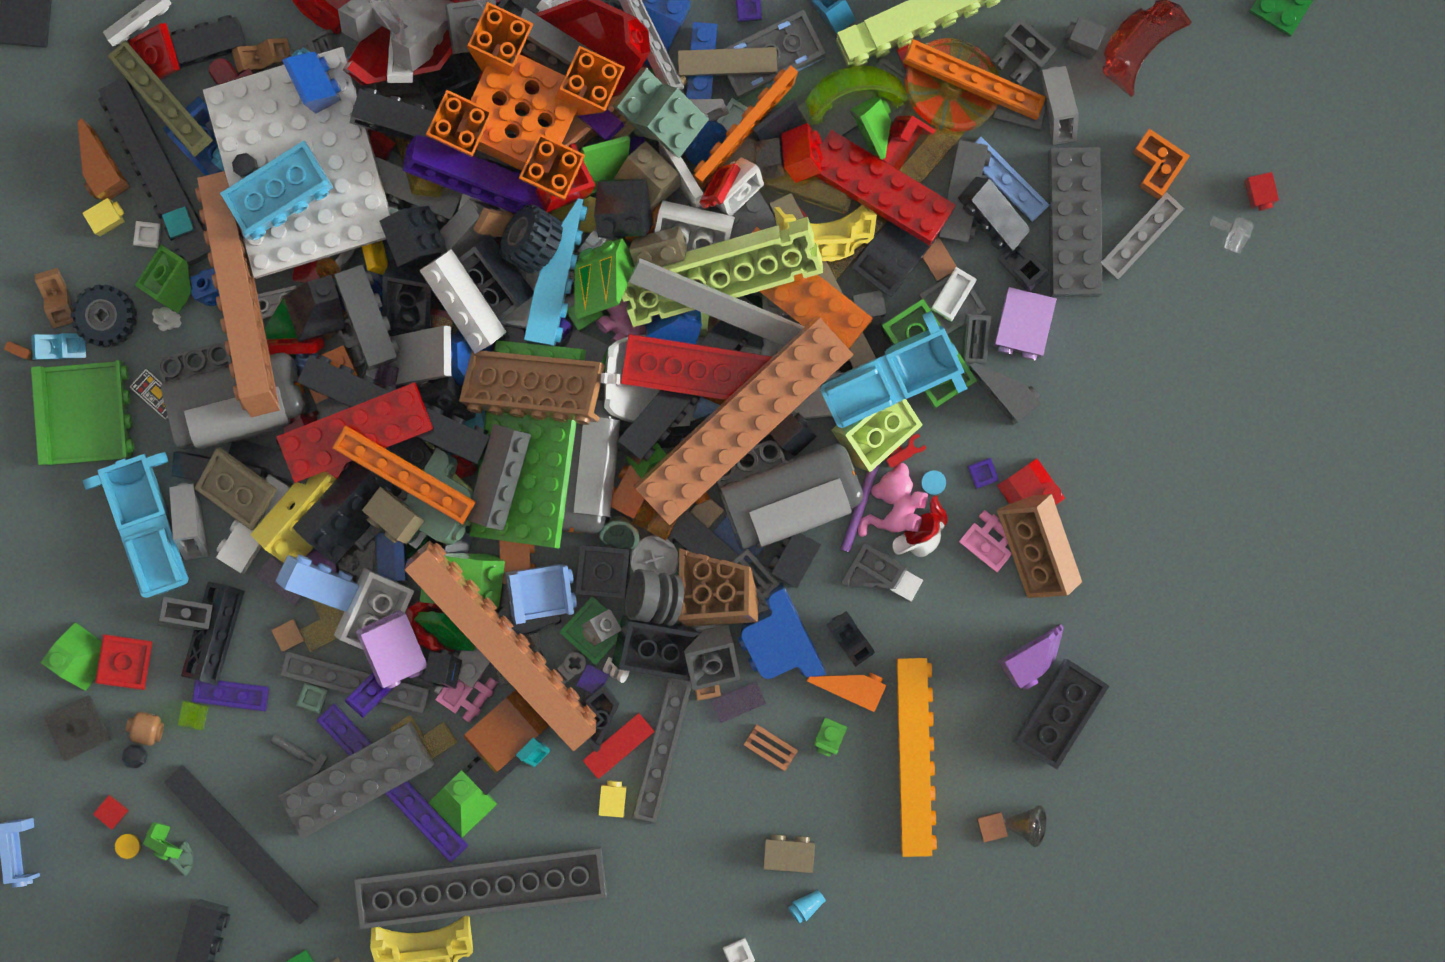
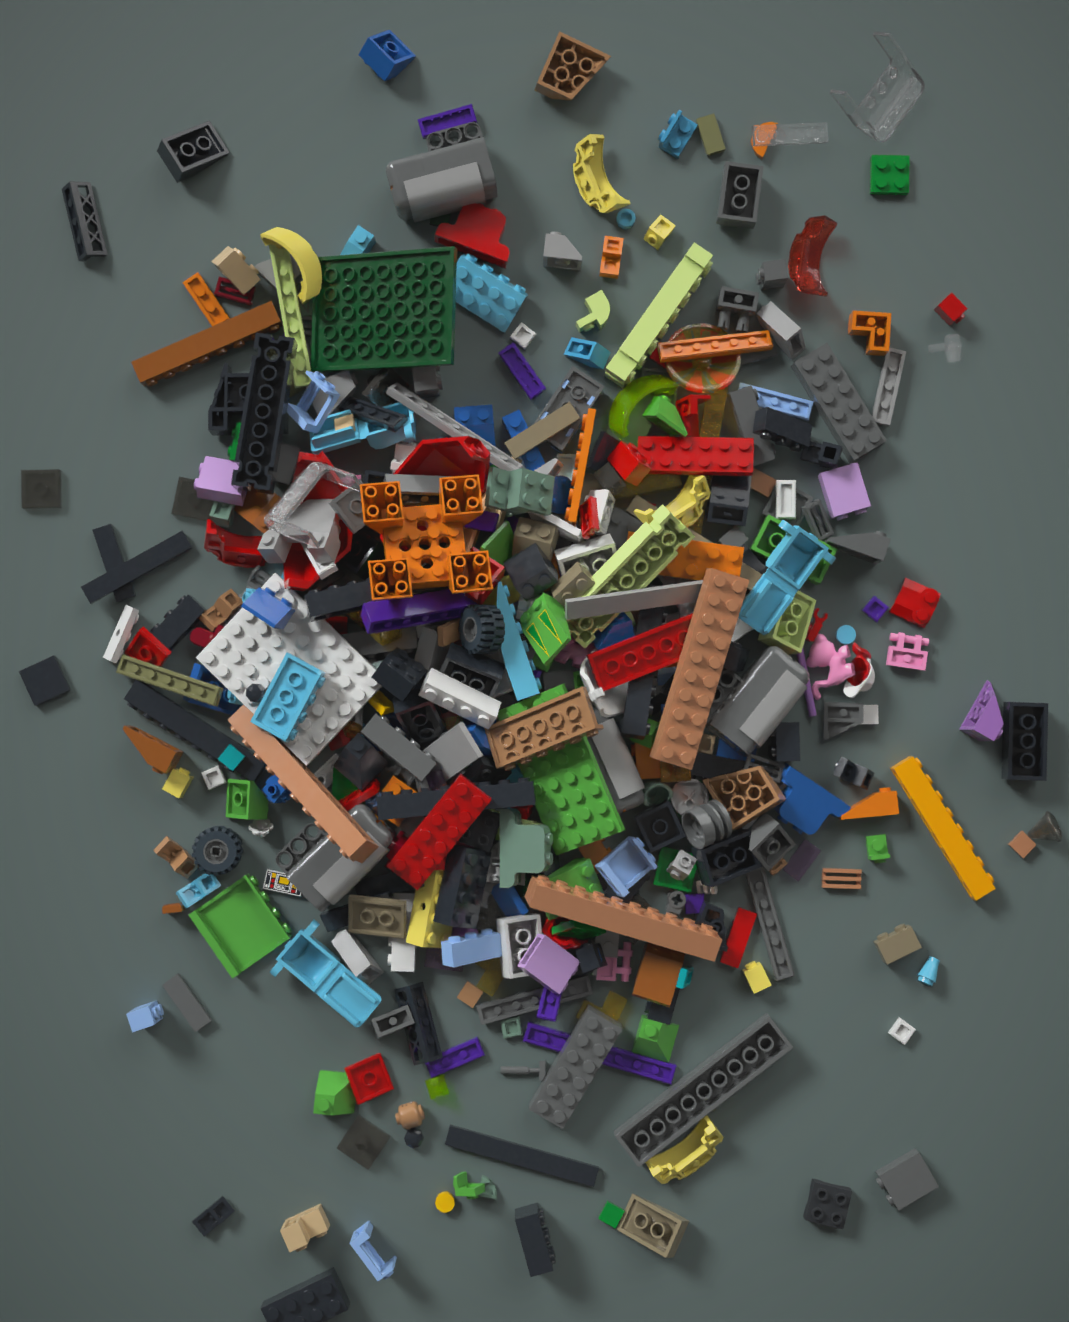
camera: 30 degrees left, 0 degrees up
(111, 812) = (420, 1185): red tile -> none
(393, 516) = (498, 873): dark tan brick -> none
(404, 474) = (490, 841): orange tile -> none
(498, 476) = (555, 805): dark grey brick -> none
(1040, 547) = (945, 636): medium nougat slope -> none

